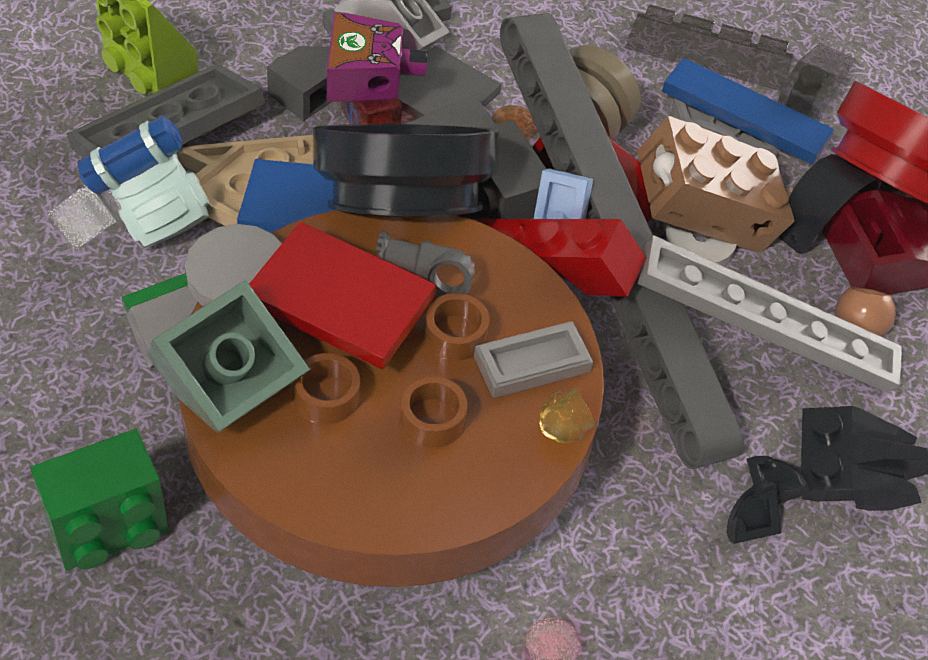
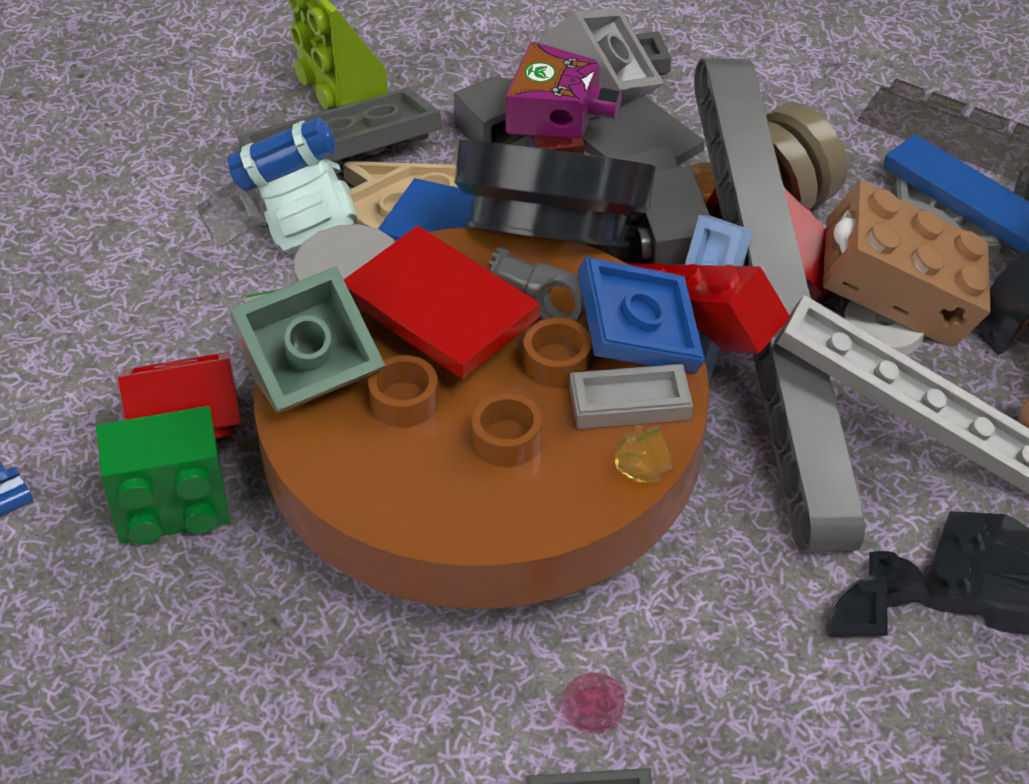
camera: 20 degrees right, 5 degrees down
(96, 409) = (183, 386): none -> red brick
(524, 280) = (639, 315): none -> blue tile

